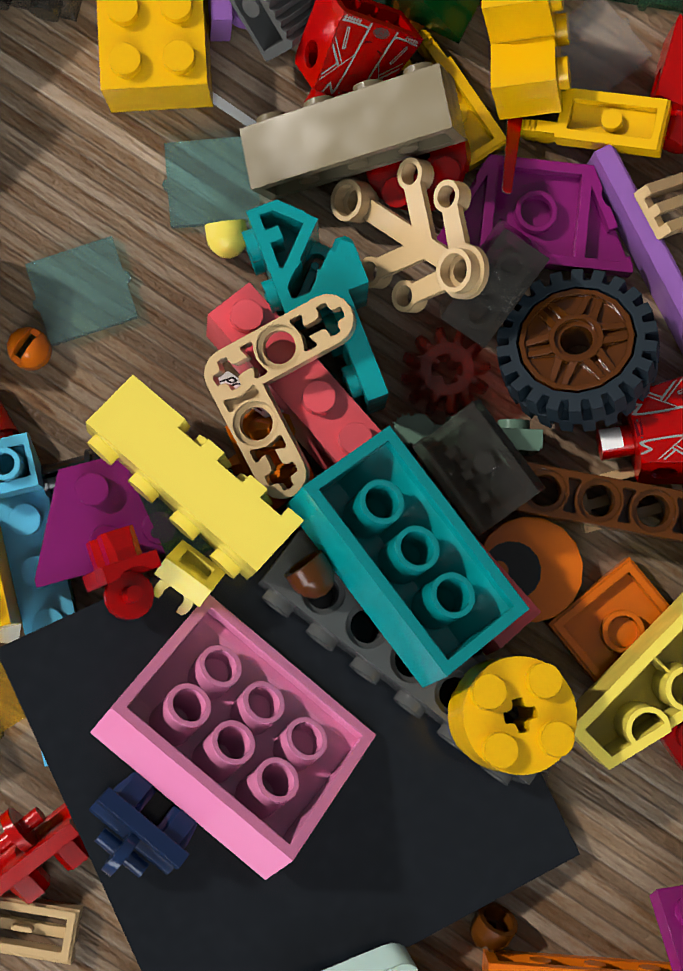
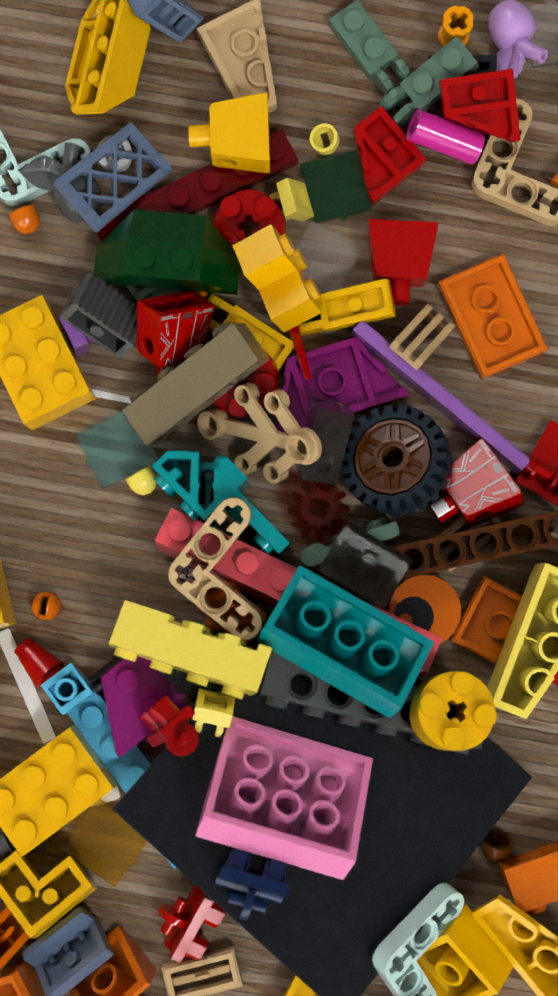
camera: 20 degrees left, 0 degrees up
(81, 291) = (63, 554): clear light blue piece -> none
(311, 575) = (290, 678): reddish brown hinge -> none

